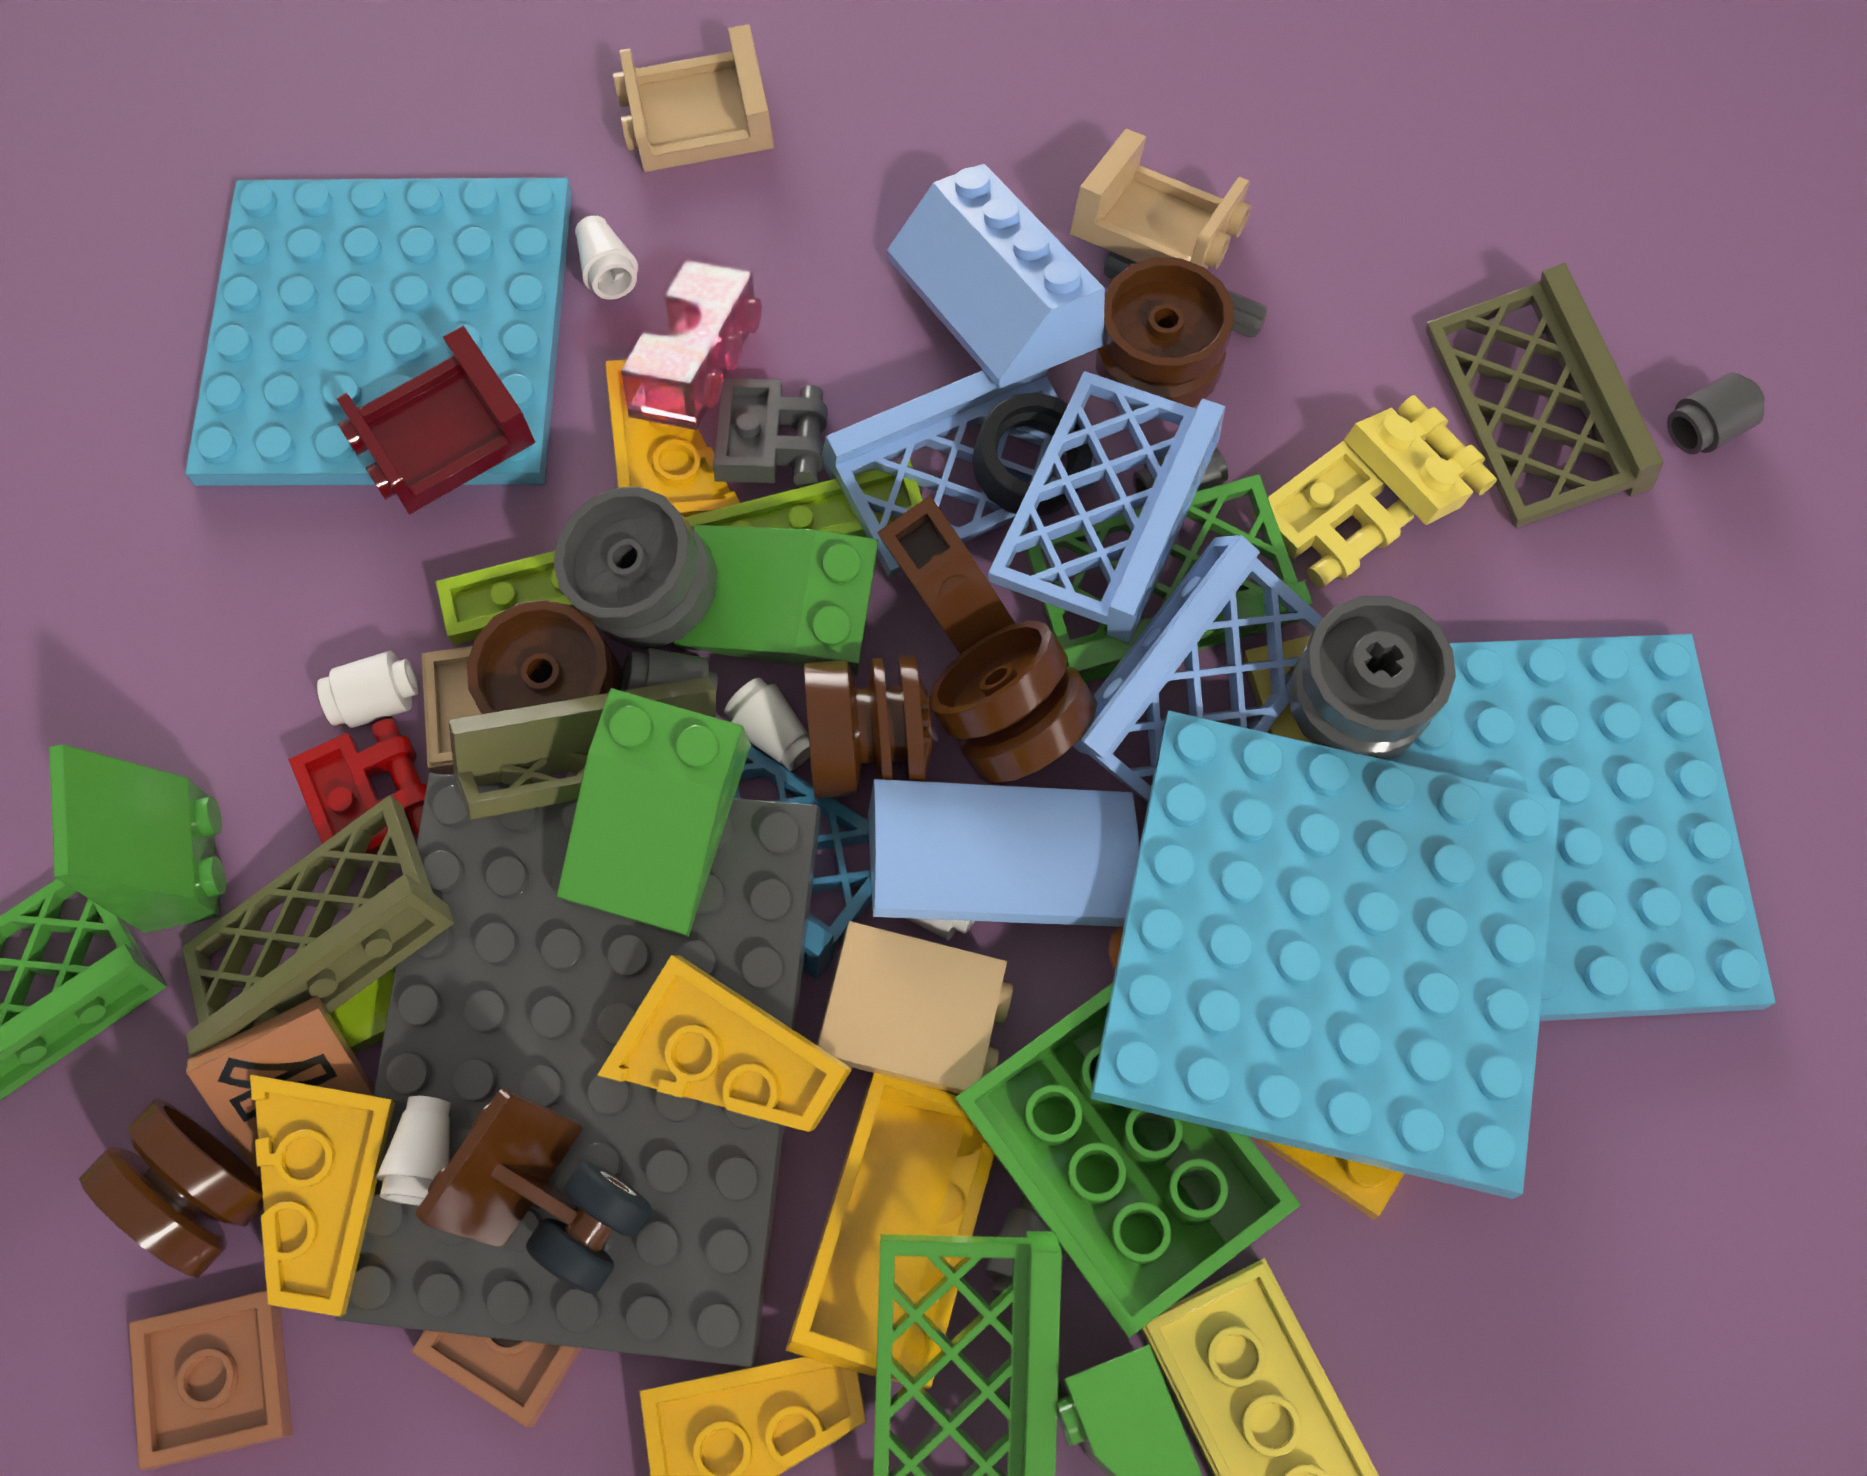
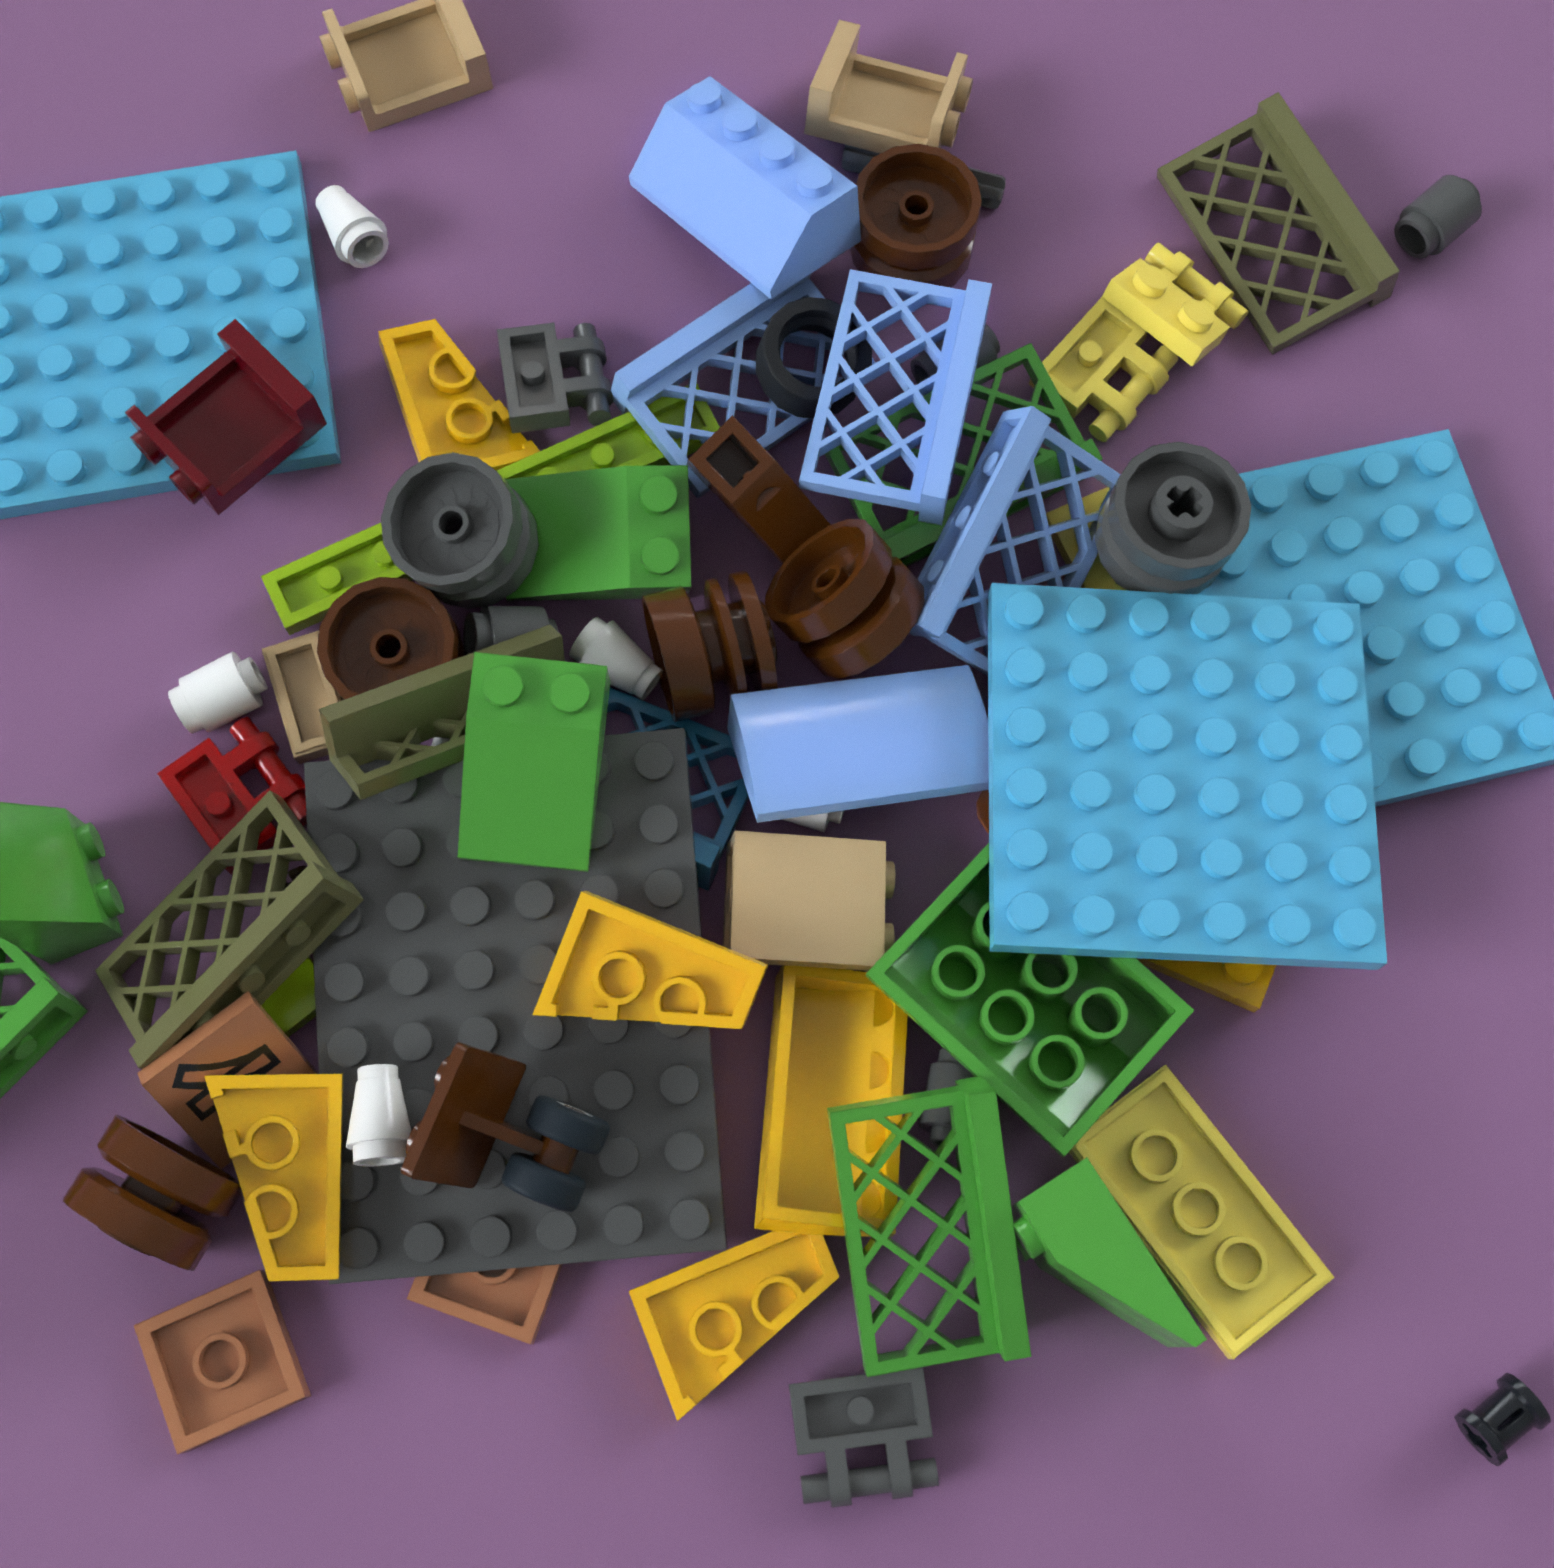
camera: 15 degrees left, 5 degrees up
(682, 374) = (459, 331): clear pink arch -> none

